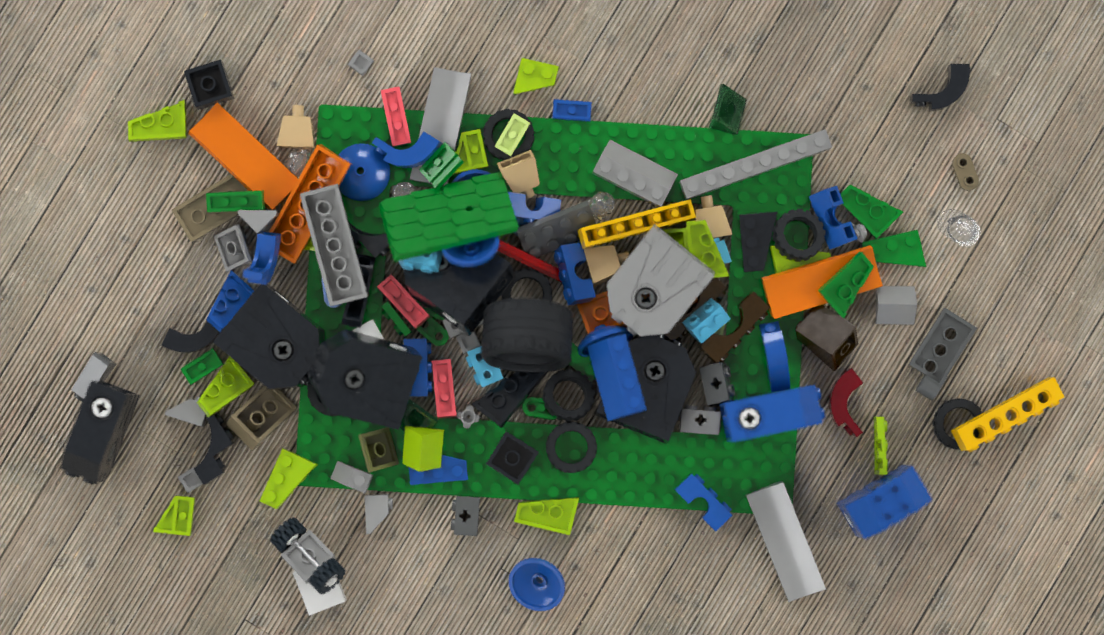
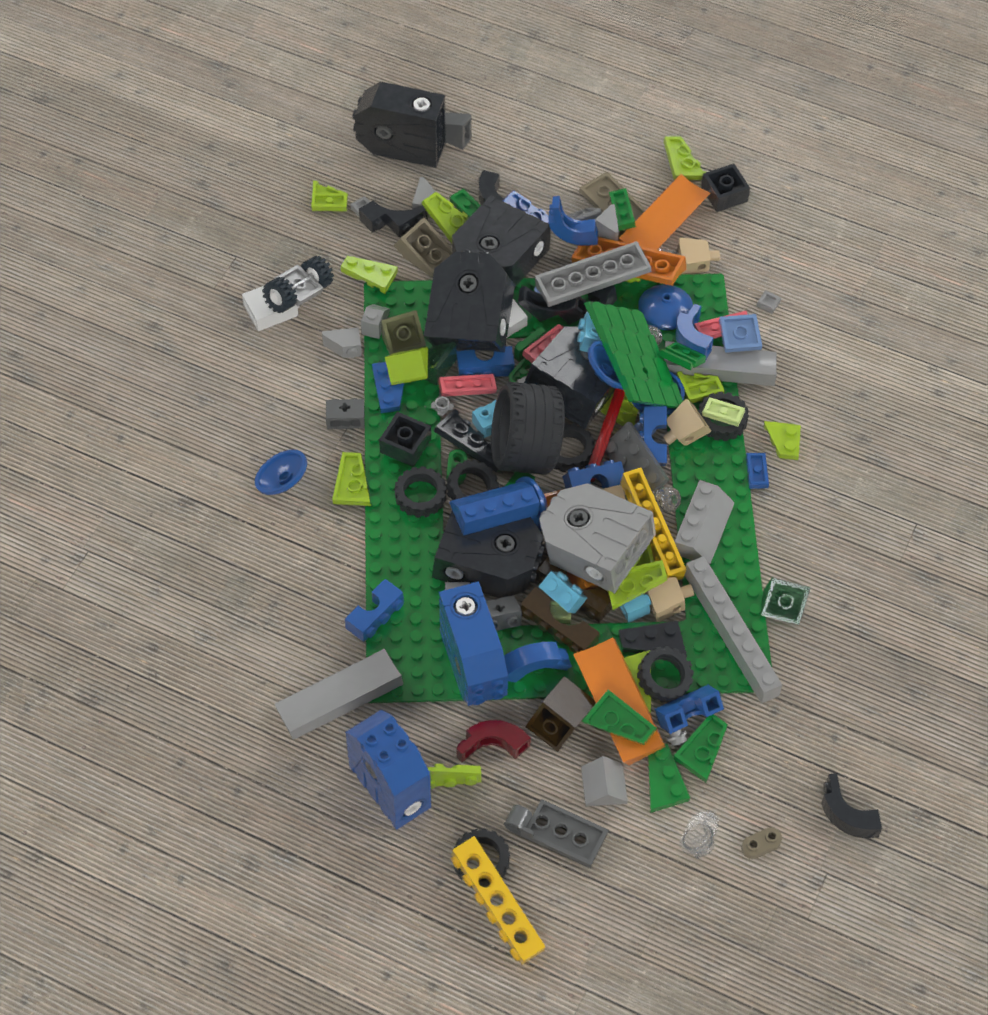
camera: 85 degrees right, 30 degrees down
(413, 101) = (740, 333): none -> medium blue plate

